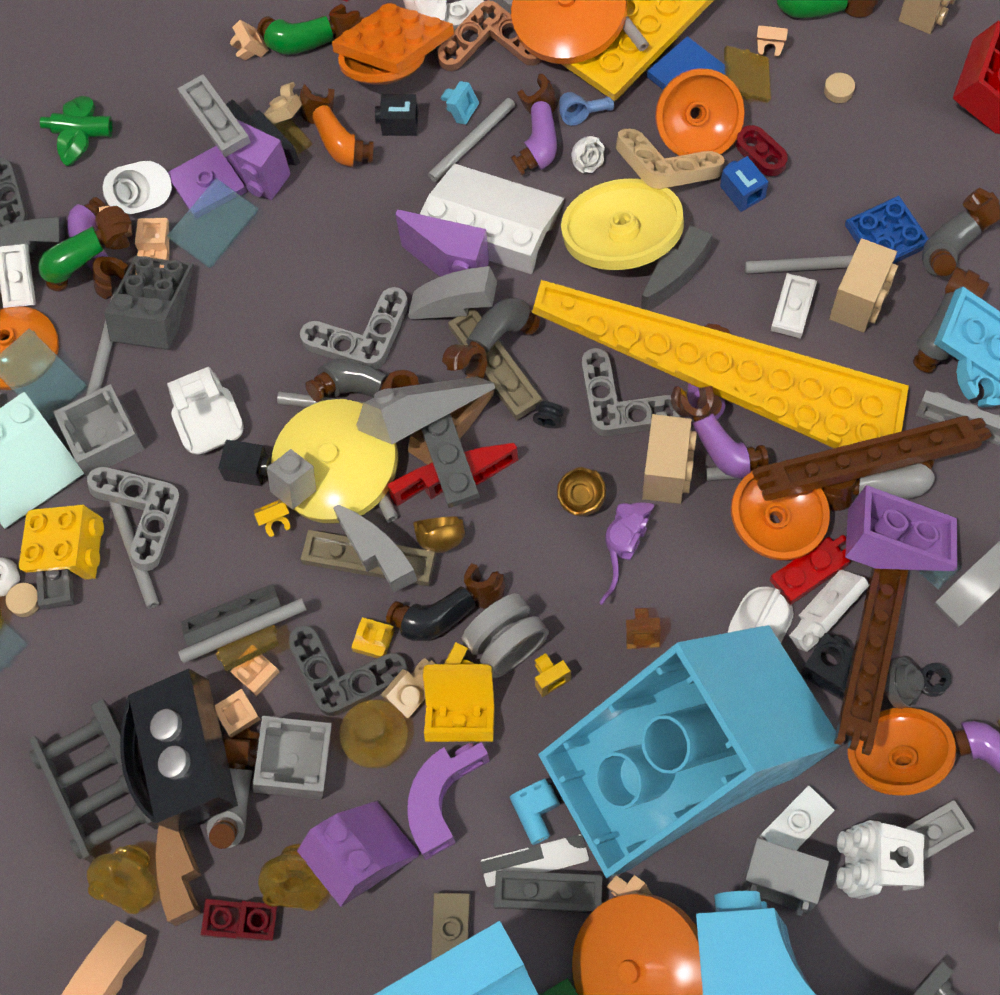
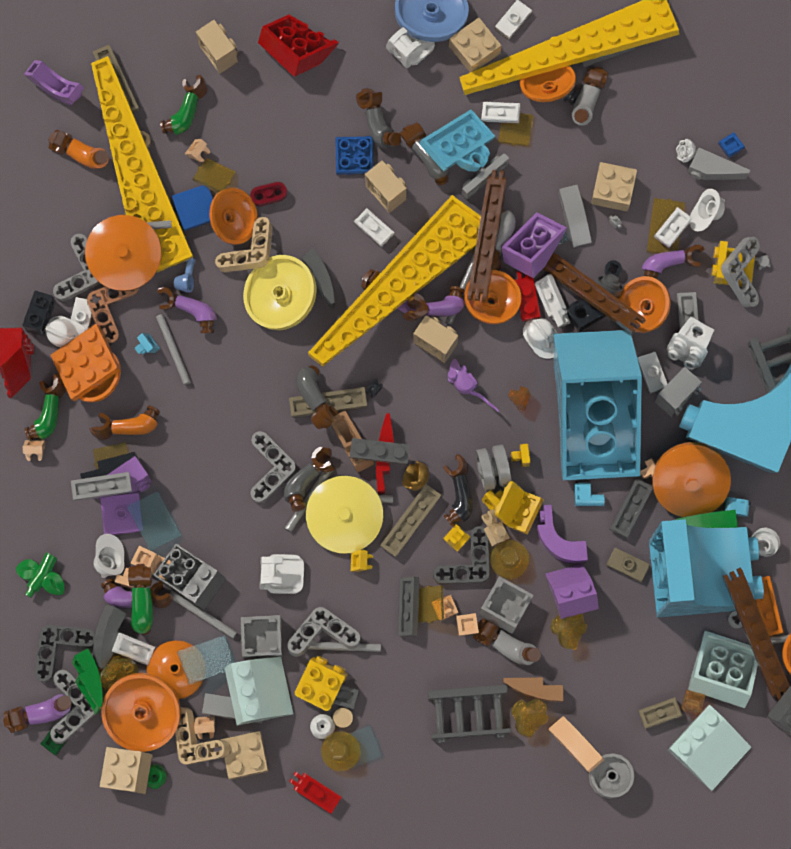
camera: 70 degrees left, 10 degrees up
(178, 750) = (480, 659): black piece -> none
(238, 920) = (574, 668): dark red slope -> none
(242, 630) = (422, 603): light grey piece -> none
(244, 462) = (322, 563): black brick -> none
(283, 106) = (98, 445): tan plate -> none
(291, 479) = (353, 539): light grey brick -> none
(376, 549) = (411, 513): light grey slope -> none
(398, 114) = (136, 383): black brick -> none
(407, 409) = (347, 455): light grey wedge -> none
(442, 243) = (250, 394): medium lavender slope -> none
(454, 294) = (278, 405): light grey slope -> none
(510, 212) = (232, 361): white piece -> none
(538, 858) = (611, 507): white sticker -> none
(581, 491) = (429, 391): pearl gold hair -> none
(588, 154) = (221, 290): white plate -> none
(616, 411) = (389, 351): light grey beam -> none
(743, 183) = (285, 215): blue brick -> none
(797, 264) = (350, 208): light grey piece -> none
(839, 87) = (248, 130): tan tile -> none

